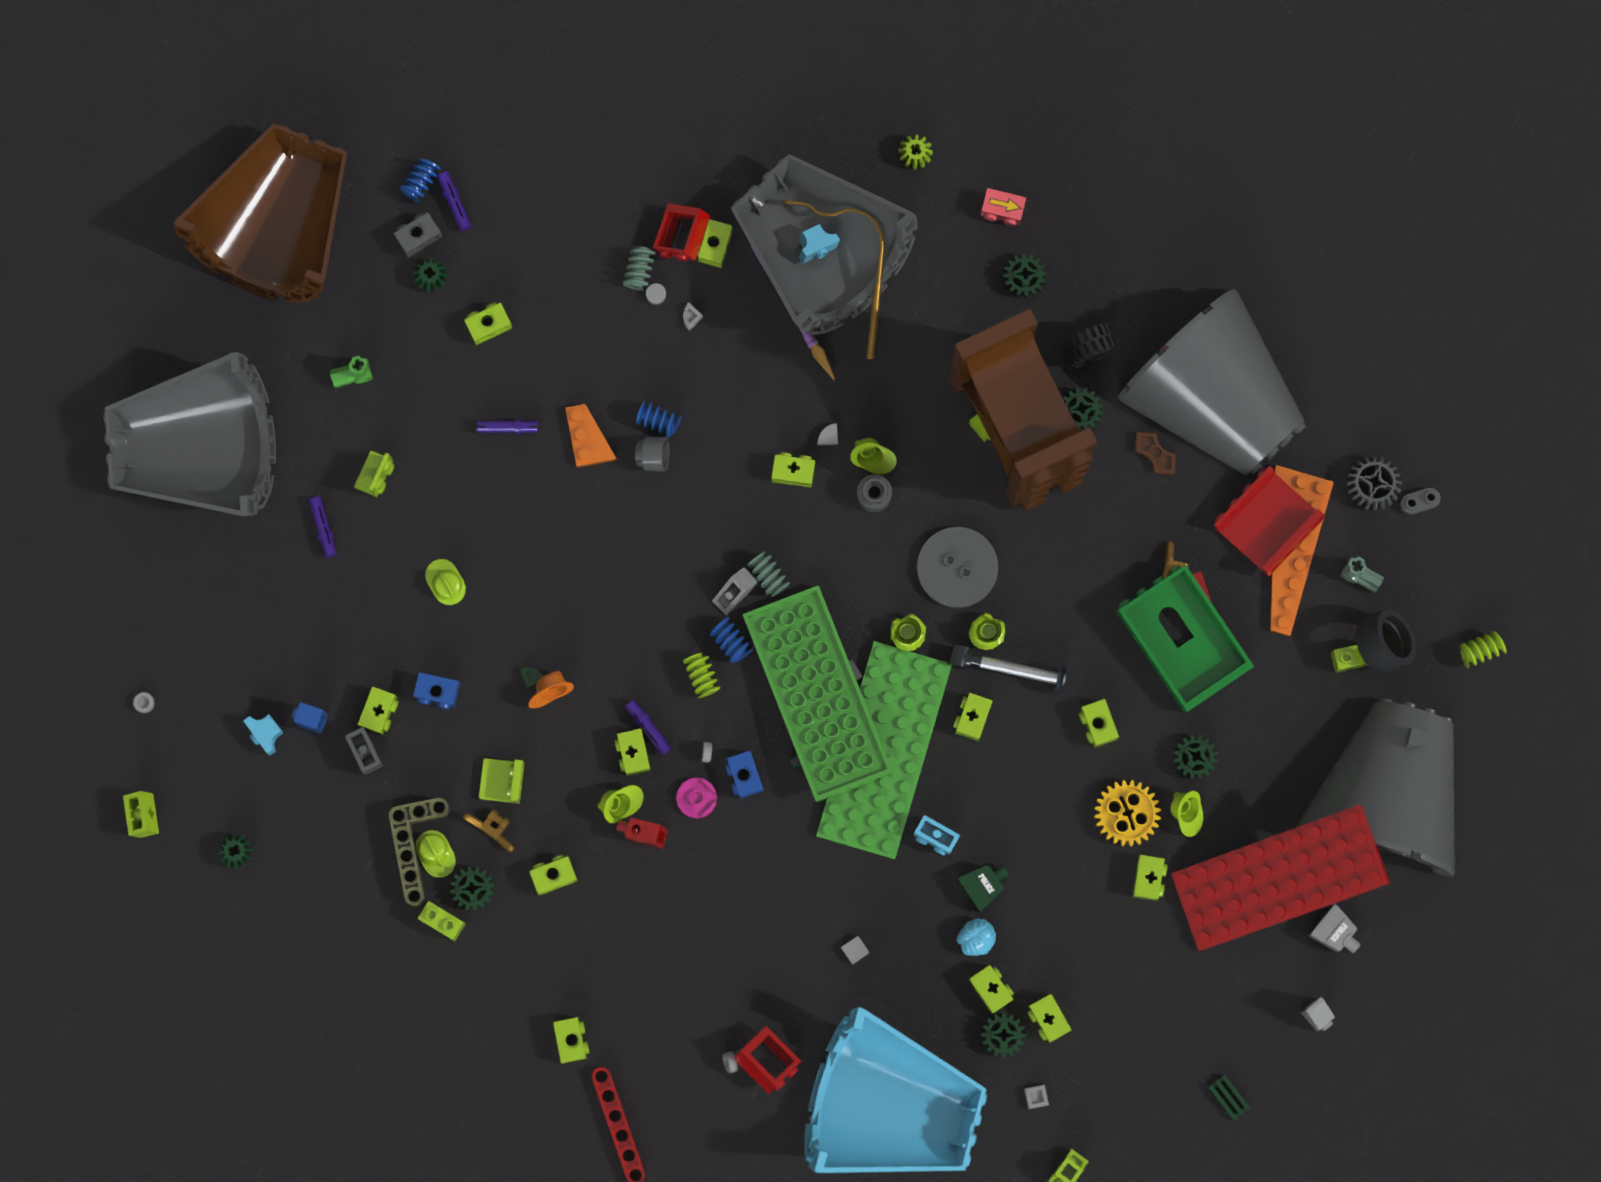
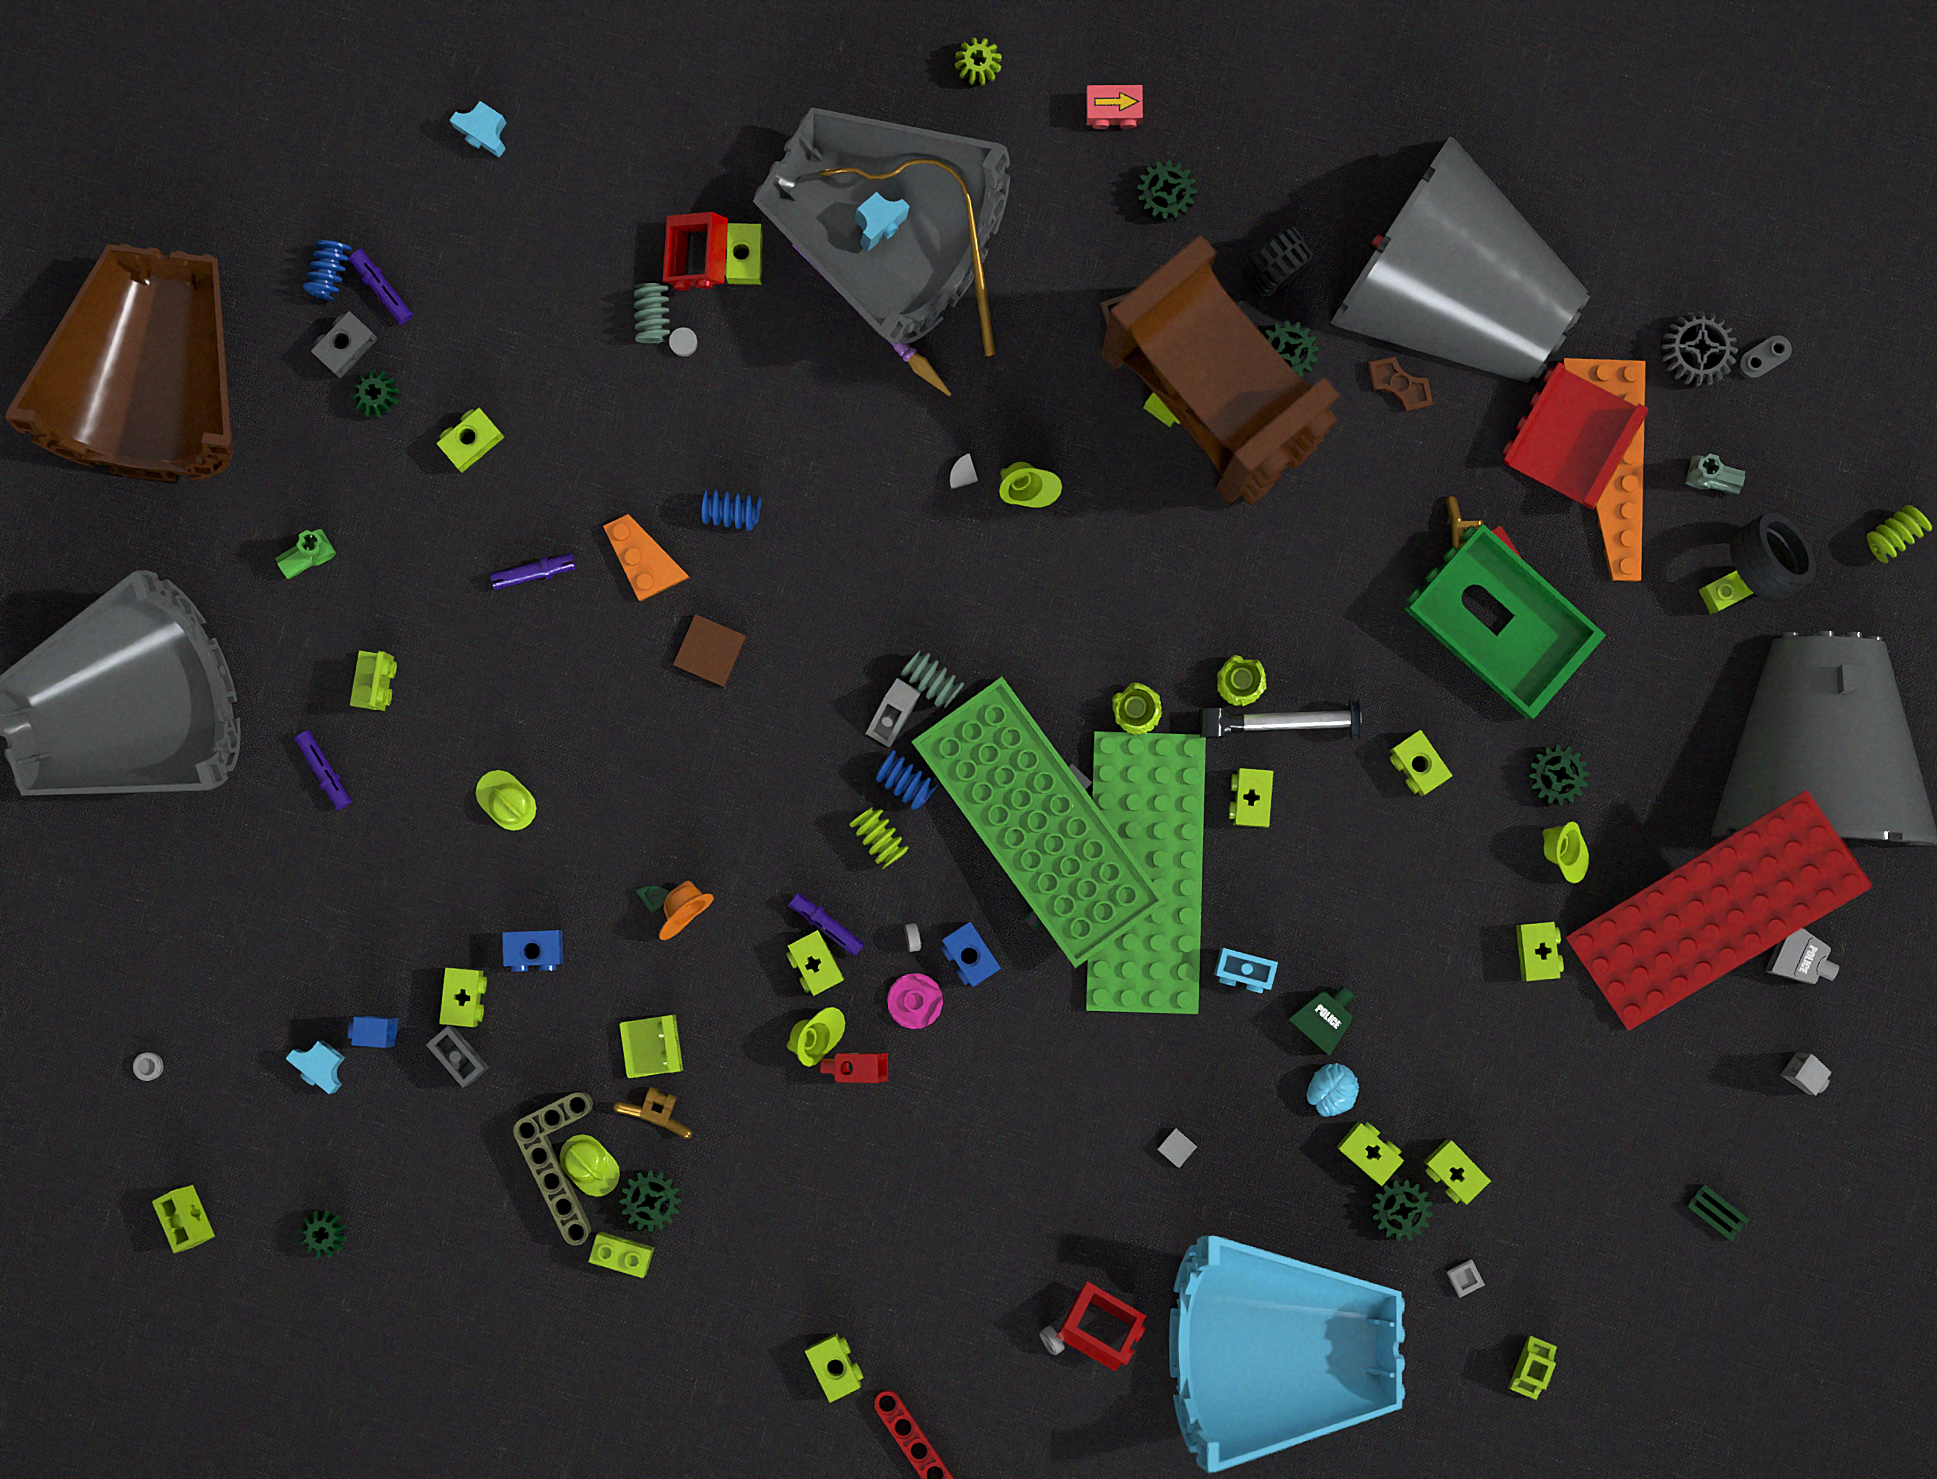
camera: 15 degrees left, 5 degrees up
(554, 109) = (481, 128): none -> medium azure brick
(565, 877) = (744, 1169): lime brick -> none
(617, 514) = (709, 650): none -> reddish brown tile
(653, 453) = (736, 558): dark grey piece -> none
(691, 316) = (738, 360): light grey tile -> none
(801, 477) = (916, 541): lime brick -> none
(874, 482) = (1043, 519): dark grey piece -> none
(957, 567) = (1179, 604): dark grey plate -> none
(1109, 819) = (1468, 888): yellow gear -> none

